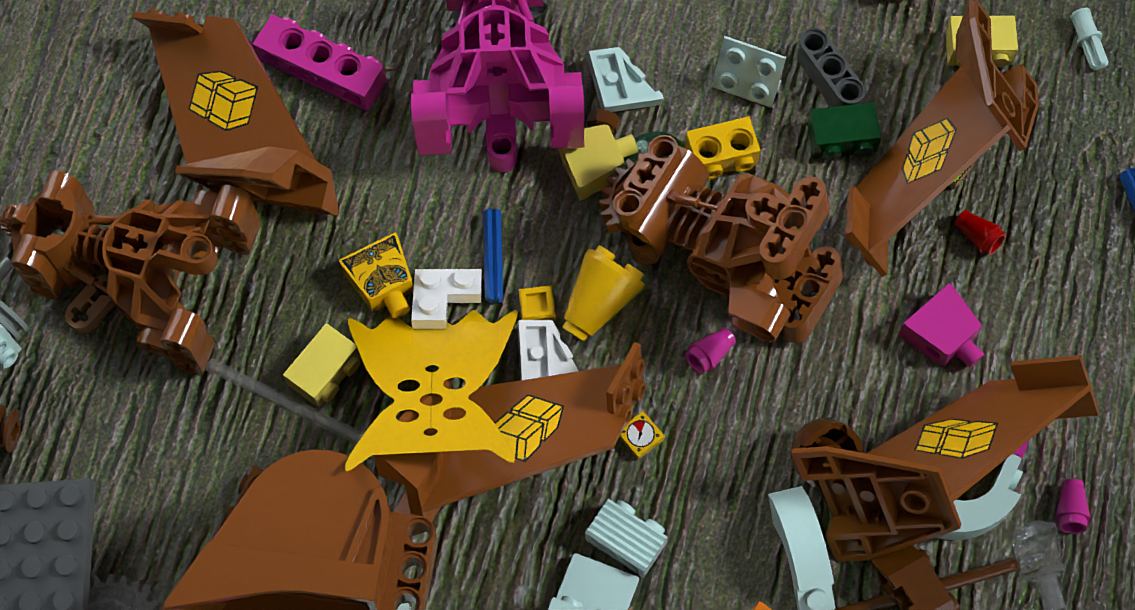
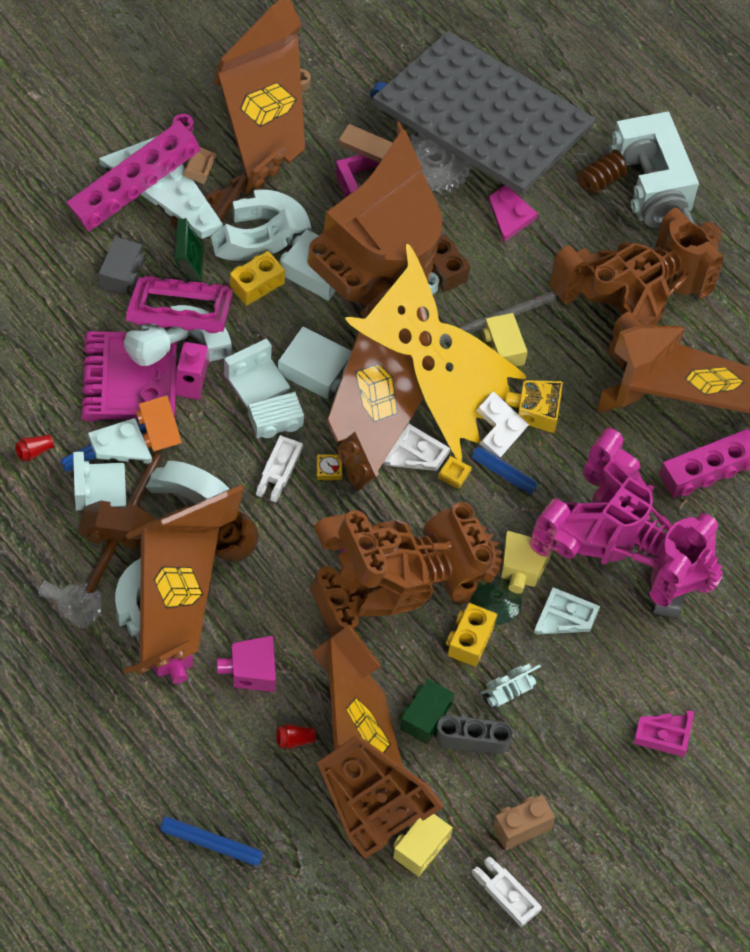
camera: 120 degrees right, 10 degrees down
(121, 493) = (510, 212): none -> dark pink wing
(519, 547) = (314, 362): none -> light aqua brick
(600, 292) = (429, 495): yellow cone -> none
(603, 116) = (544, 584): reddish brown tile -> none
(686, 484) = (280, 466): none -> white hinge
(1073, 508) = (88, 646): dark pink cone -> none
(1089, 38) = (369, 914): light aqua axle -> none

